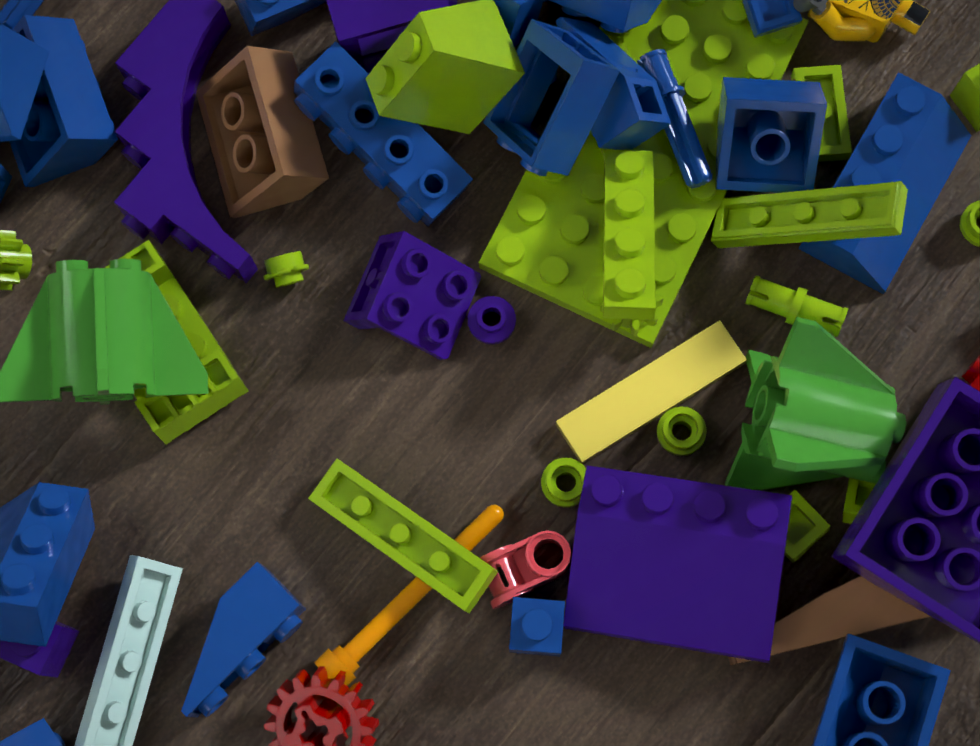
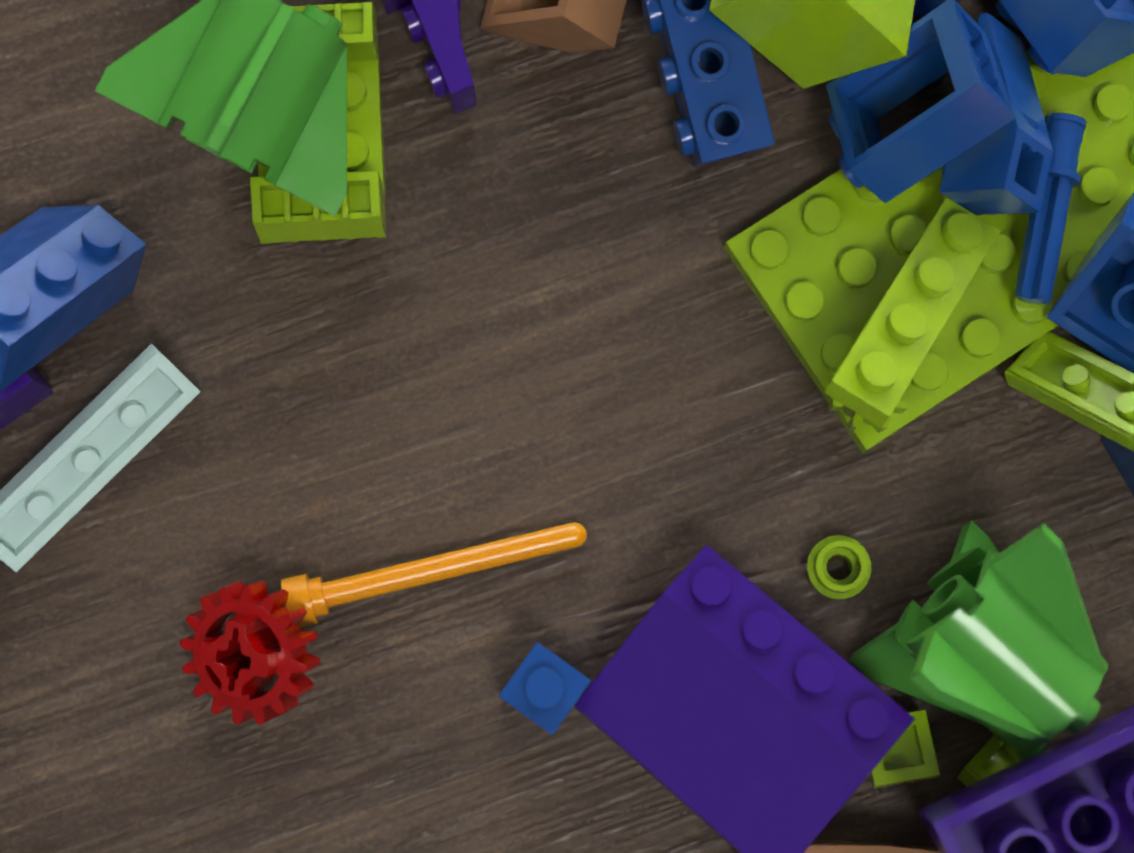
camera: 25 degrees right, 5 degrees up
(242, 628) = (227, 495): blue slope -> none
(285, 269) = (506, 123): lime plate -> none
(403, 535) = (459, 500): lime plate -> none
(414, 294) = (632, 235): dark purple bracket -> none
(491, 334) = (701, 335): dark purple plate -> none
(521, 569) = (566, 612): coral piece -> none
(553, 471) = (666, 527): lime plate -> none
(650, 392) = (831, 503): light yellow tile -> none
(795, 304) = (1056, 504): lime pin -> none

